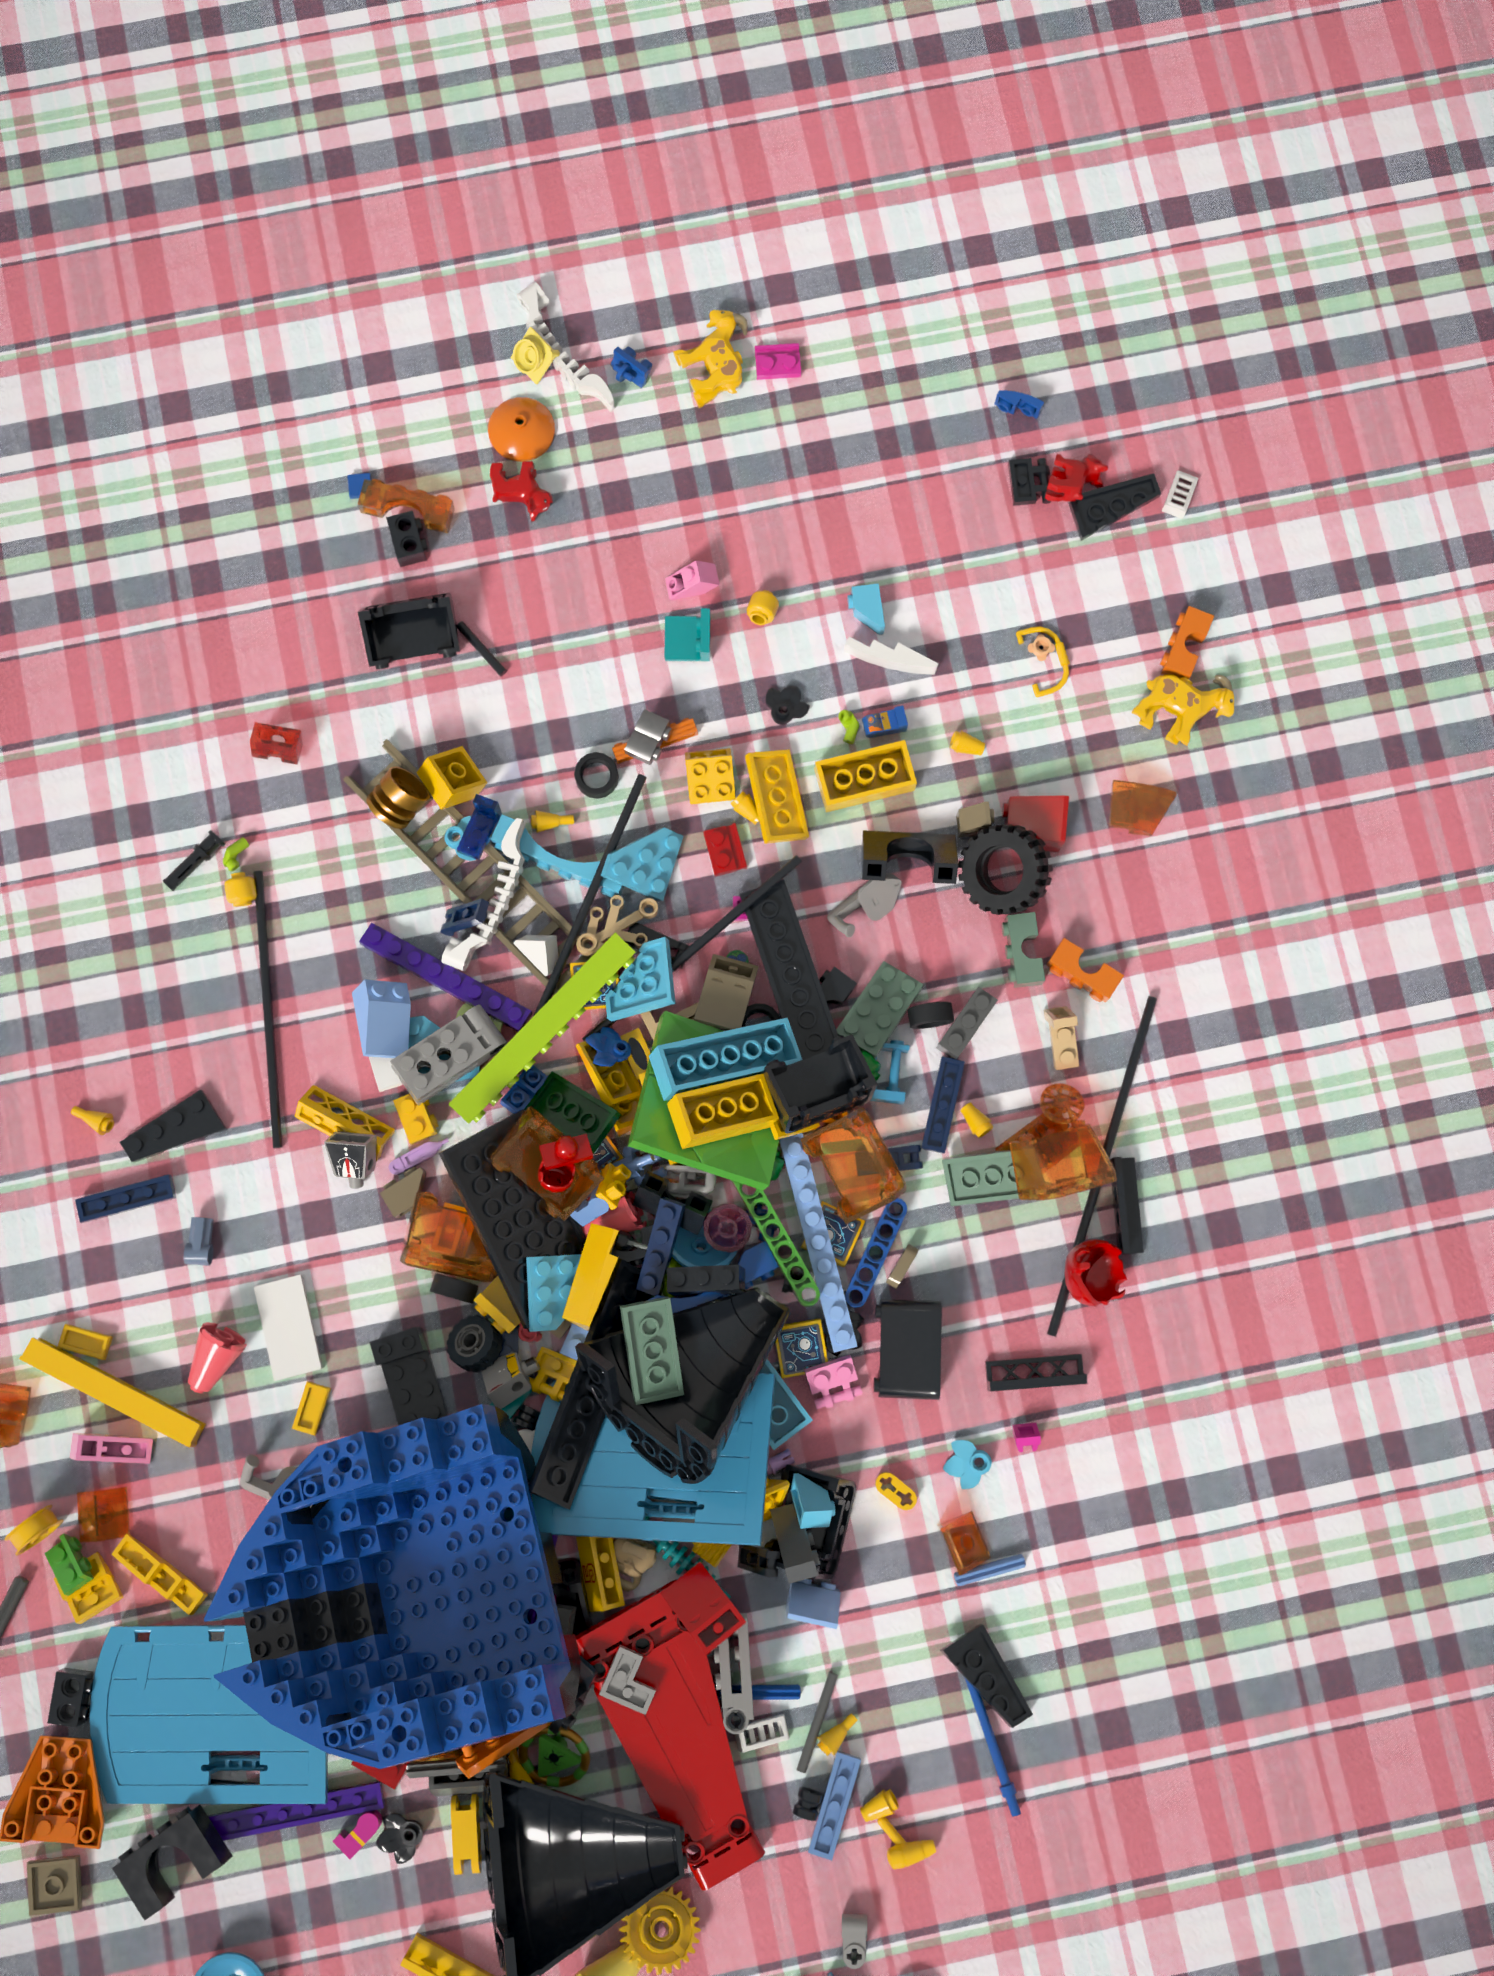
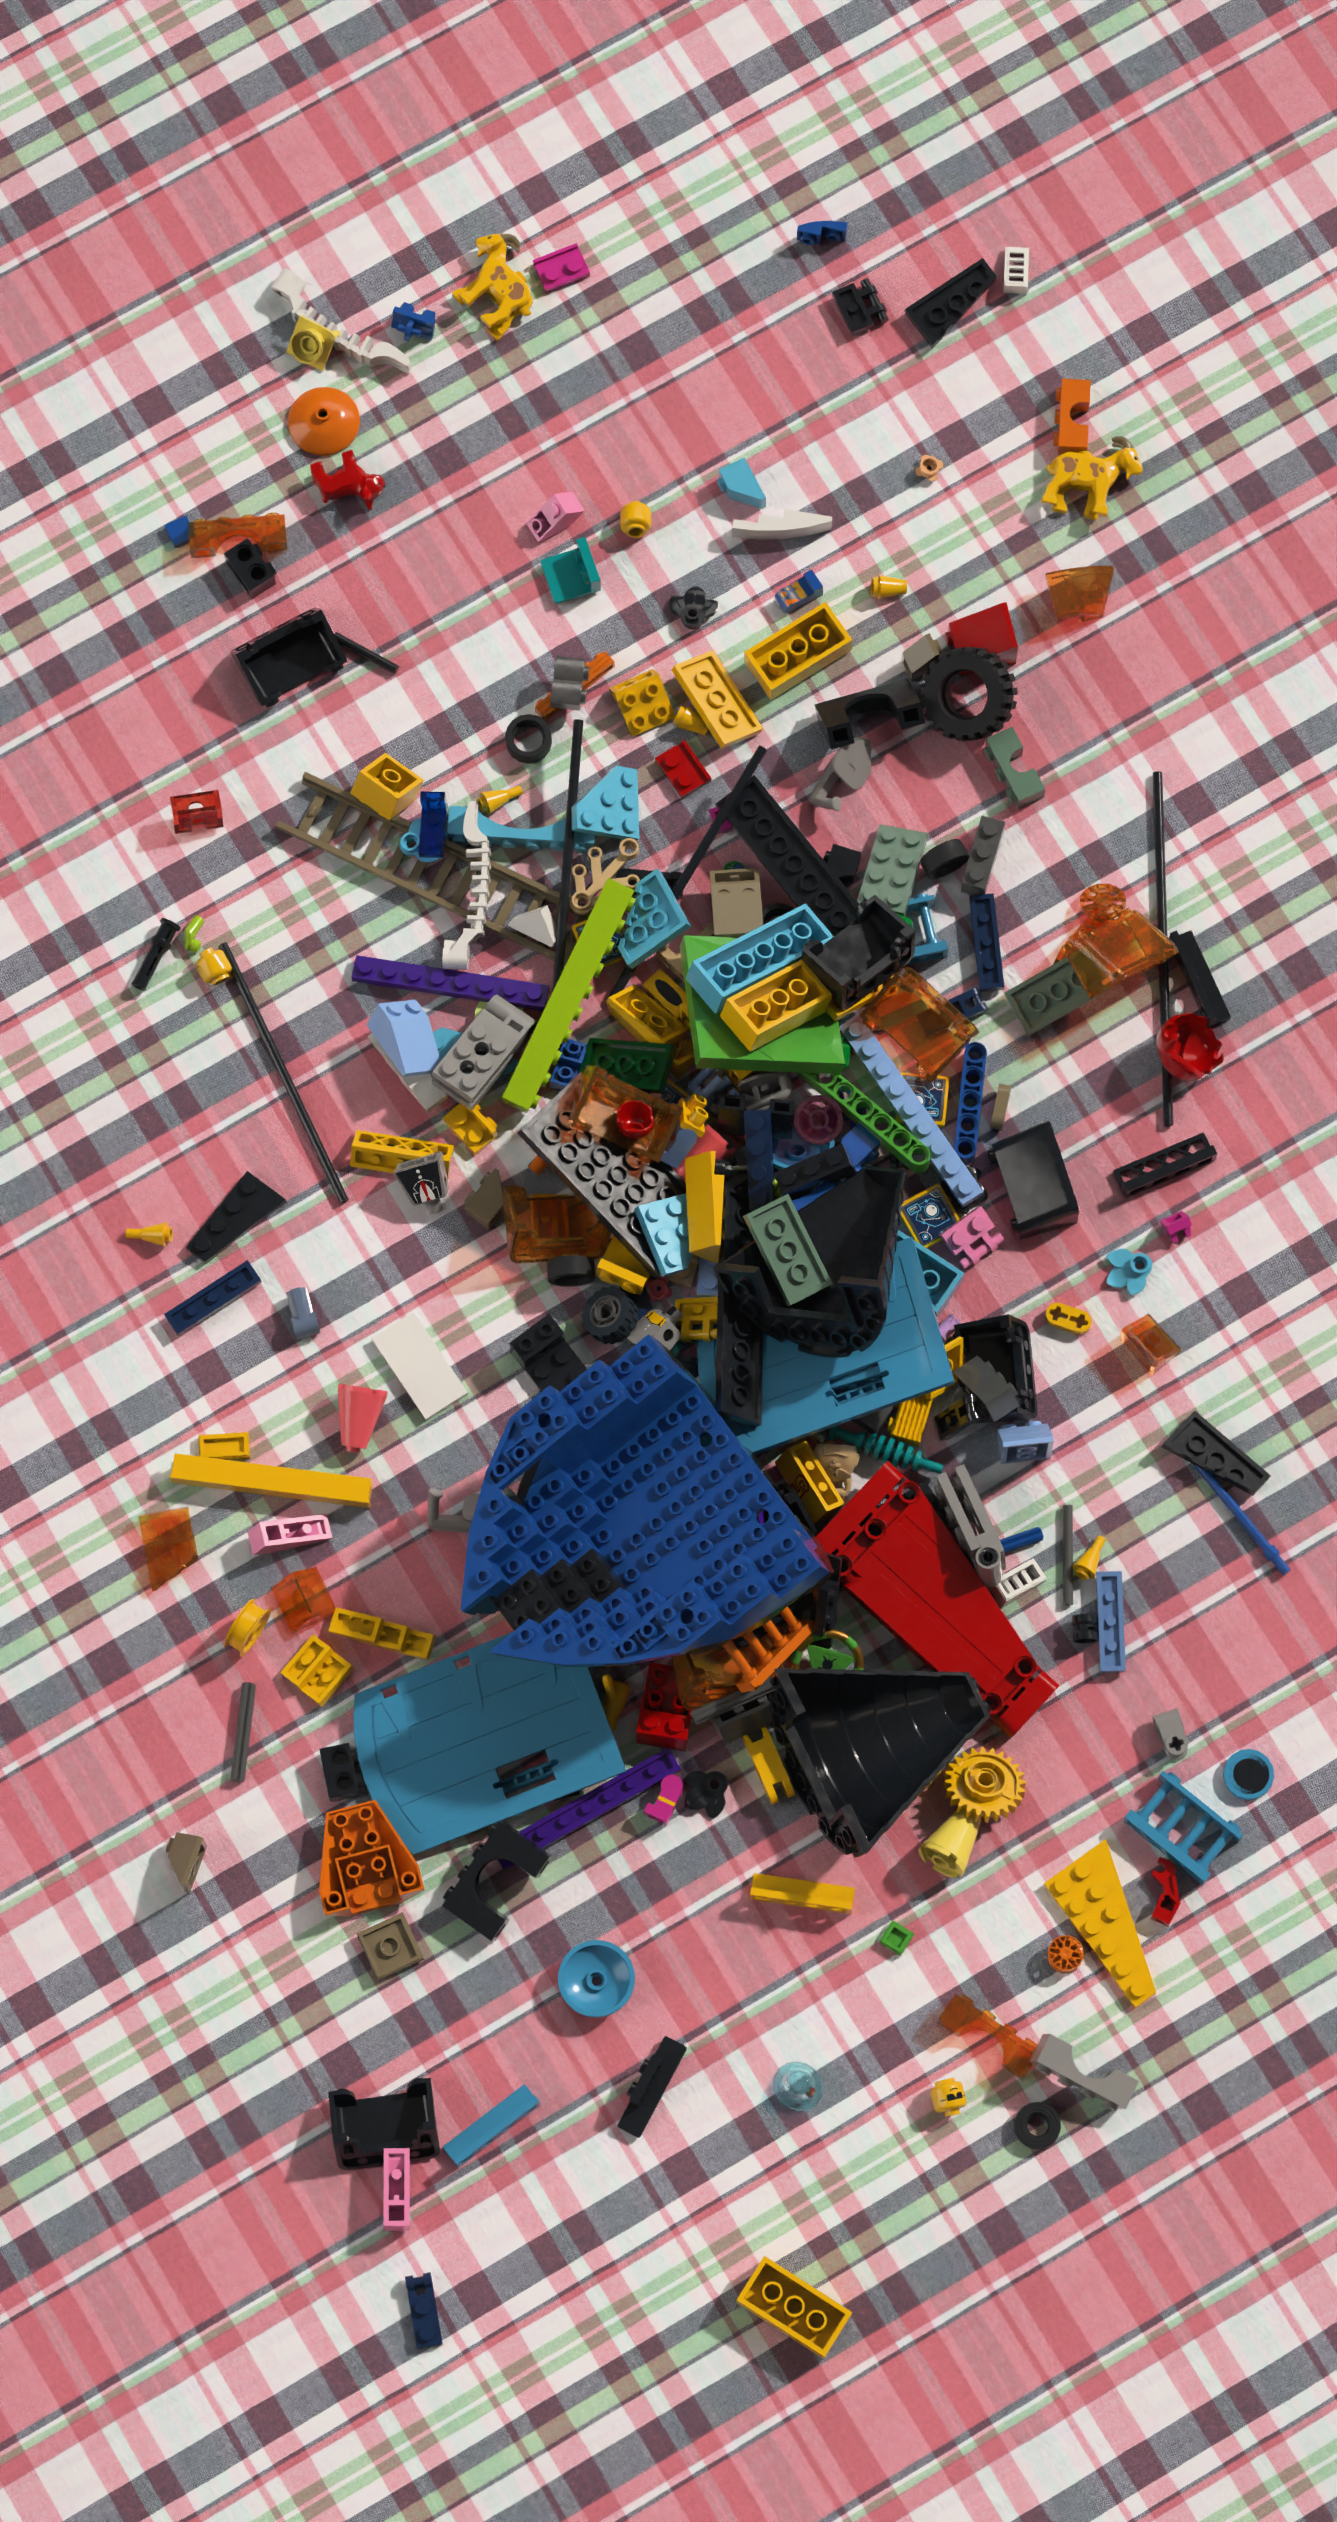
camera: 15 degrees left, 5 degrees down
(69, 1565) = (292, 1652): bright green bracket -> none
(311, 1408) = (471, 1433): yellow tile -> none
(397, 797) = (342, 822): pearl gold wheel -> none
(415, 1157) = (484, 1165): lavender piece -> none
(465, 916) = (450, 915): dark blue plate -> none
(566, 1151) = (637, 1094): red tile -> none
(607, 1046) = (640, 993): blue plate -> none
(622, 1686) = (867, 1566): light grey plate -> none
(703, 1608) = (923, 1469): red slope -> none
(811, 1503) = (989, 1347): medium azure slope -> none
(850, 724) = (765, 606): lime arm -> none
(880, 1806) = (1154, 1608): yellow cone -> none
(905, 1853) = (1192, 1642): yellow piece -> none
(976, 1120) = (1026, 947): yellow cone -> none
(991, 1569) = (1184, 1360): medium blue axle -> none
(1062, 655) = (950, 465): yellow piece -> none
(1063, 1037) = (1082, 838): tan bracket -> none
(1066, 963) = (1099, 776): orange arch -> none
(1068, 483) = (900, 295): red animal -> none

